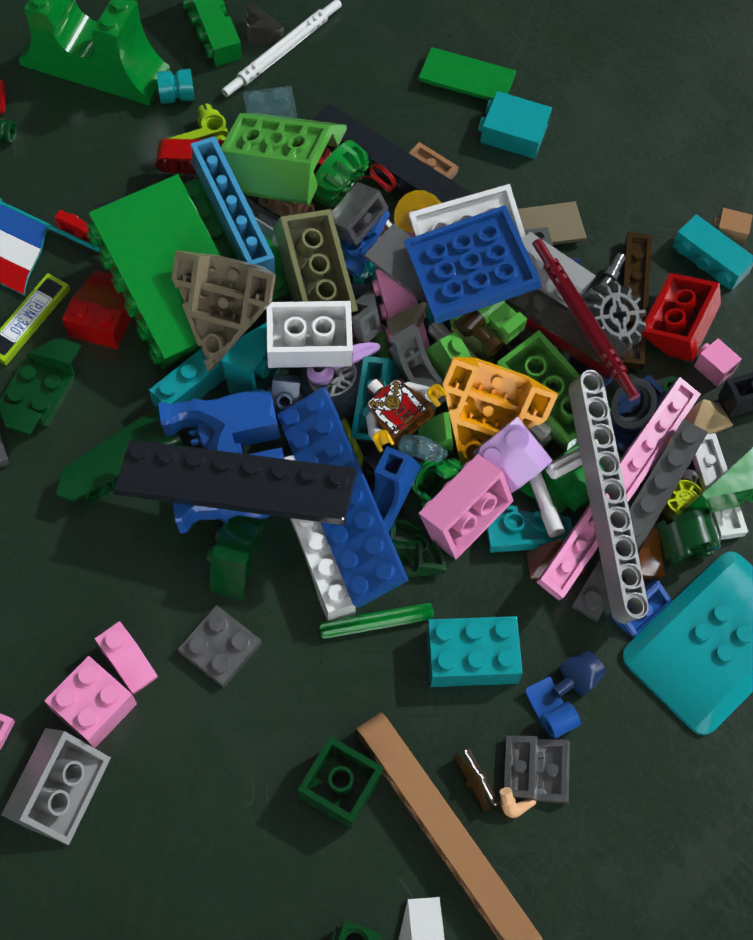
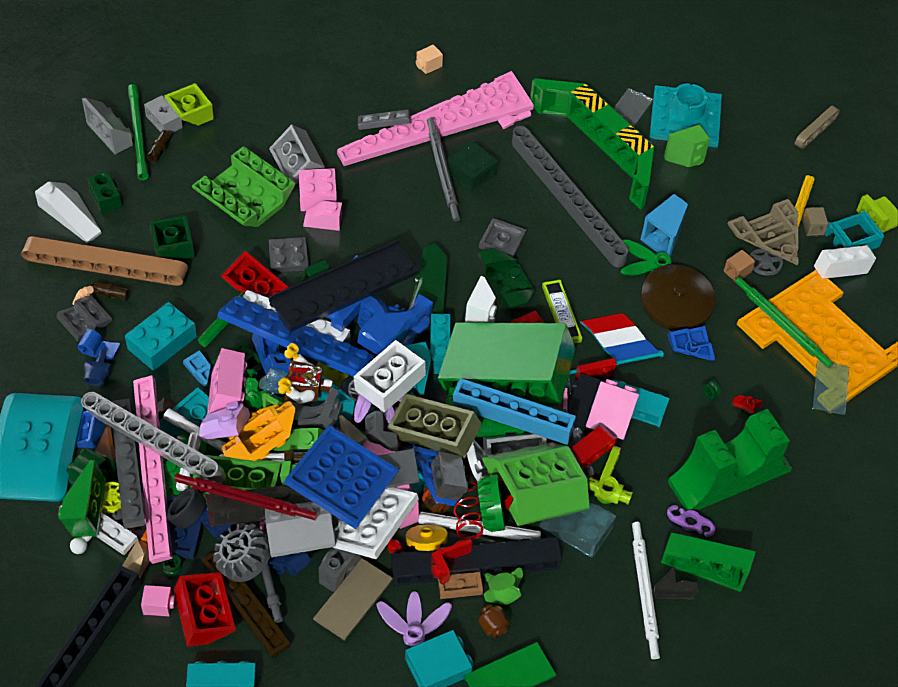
camera: 135 degrees right, 10 degrees down
(85, 172) = (649, 407): none -> teal brick
(119, 357) = (481, 304): none -> white slope
(120, 168) = (613, 408): none -> bright pink brick
(153, 789) = (254, 183): none -> bright green slope
(171, 53) = (681, 520): none -> medium lavender piece
(175, 86) = (663, 495): teal wheel -> none
(220, 298) = (458, 356): dark tan wedge -> none
(303, 631) = (251, 275): none -> red wedge
(400, 126) = (503, 587): none -> bright green piece
(427, 170) = (442, 555): none -> red bracket
(436, 115) = (494, 621): none -> reddish brown head
(461, 581) = (198, 367): none -> dark azure slope
(502, 171) = (413, 630): none -> lavender plant

